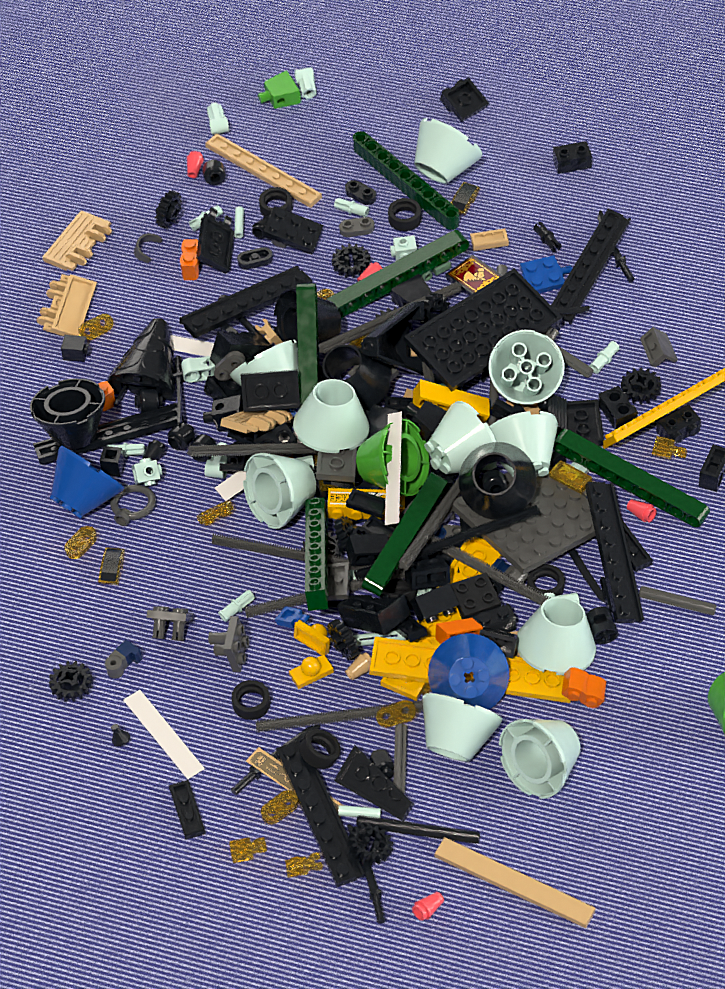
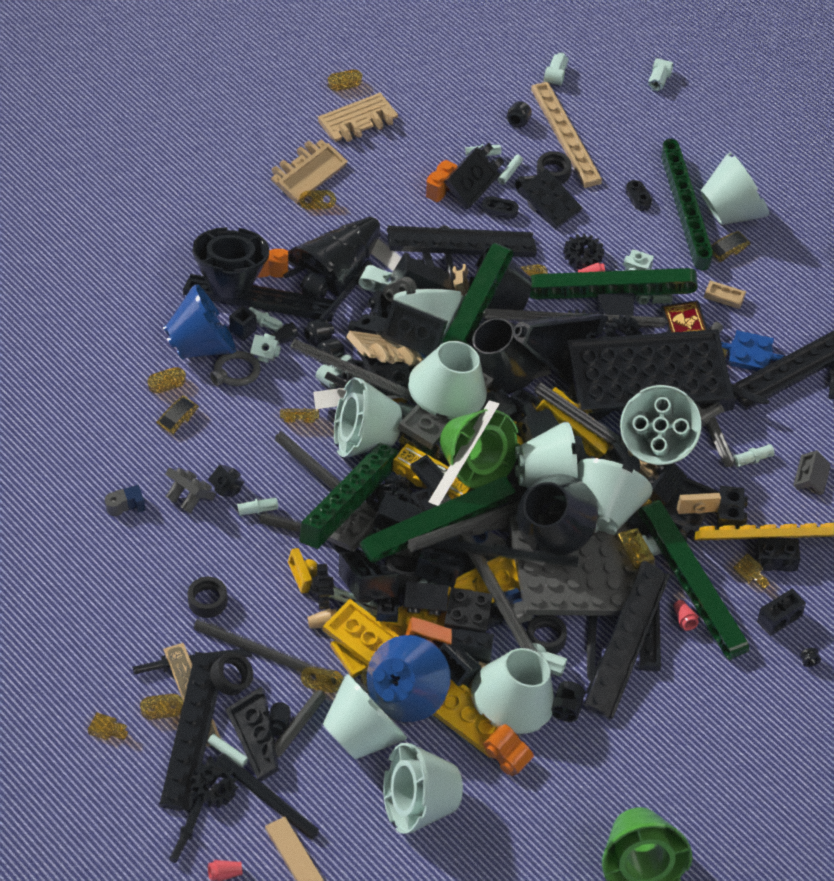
camera: 25 degrees right, 0 degrees up
(42, 214) = (344, 80): none -> clear yellow plate
(70, 681) = (68, 496): black gear -> none
(75, 348) = (285, 209): black brick -> none
(119, 736) = (73, 567): black rock -> none
(145, 238) = (413, 143): dark grey helmet -> none
(164, 734) = (114, 587): white sticker -> none
(168, 209) = (452, 127): black gear -> none
(186, 809) = (83, 664): black tile -> none
(191, 595) = (226, 481): none -> black brick
(194, 163) = (508, 97): coral cone -> none
(231, 643) = (225, 537): dark grey plate -> none
(280, 91) = (630, 71): bright green torso -> none
(290, 616) = (291, 541): blue plate -> none
(300, 865) = (139, 769): clear yellow plate -> none
(311, 671) = (279, 600): yellow tile -> none
(351, 207) = (620, 204): light aqua axle -> none
(356, 227) = (612, 224): dark grey plate -> none
(404, 204) = (660, 244): black tyre -> none
(451, 393) = (576, 414): none -> black axle
(463, 99) = (793, 156): black plate -> none
(547, 237) = (780, 318): black pin -> none
(592, 416) = (698, 503): none -> tan plate
(641, 385) = (778, 498): black gear -> none
(677, 600) = (658, 717): dark grey axle -> none

